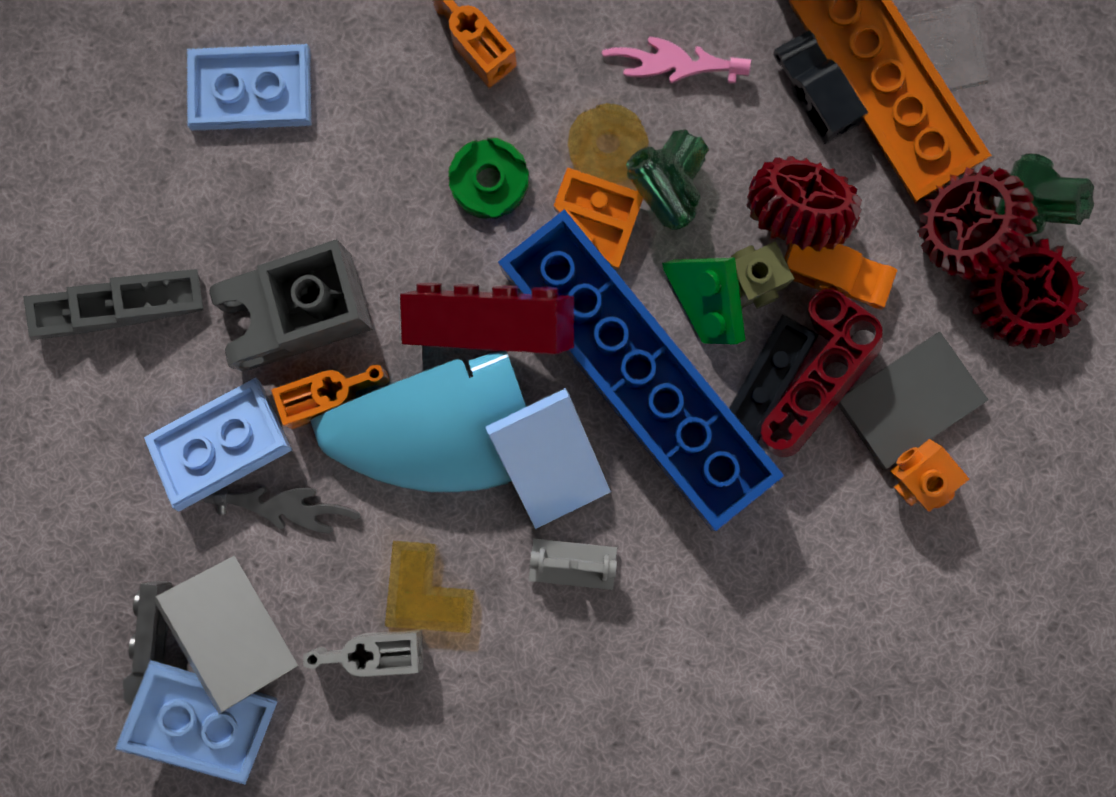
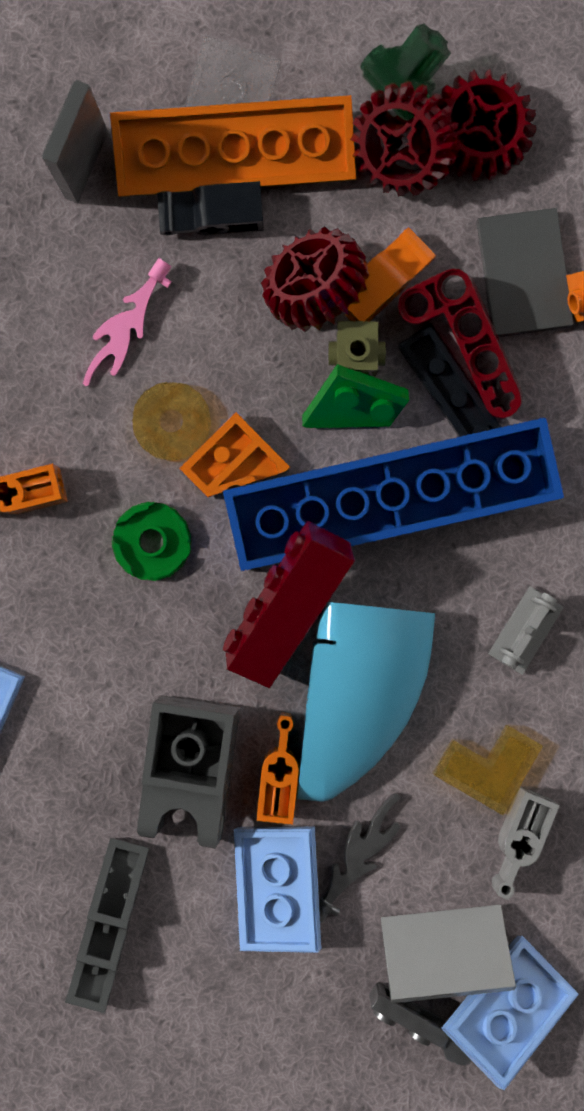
camera: 65 degrees left, 5 degrees up
(549, 458) = (432, 608): light blue tile -> none
(667, 177) = (231, 386): clear green piece -> none

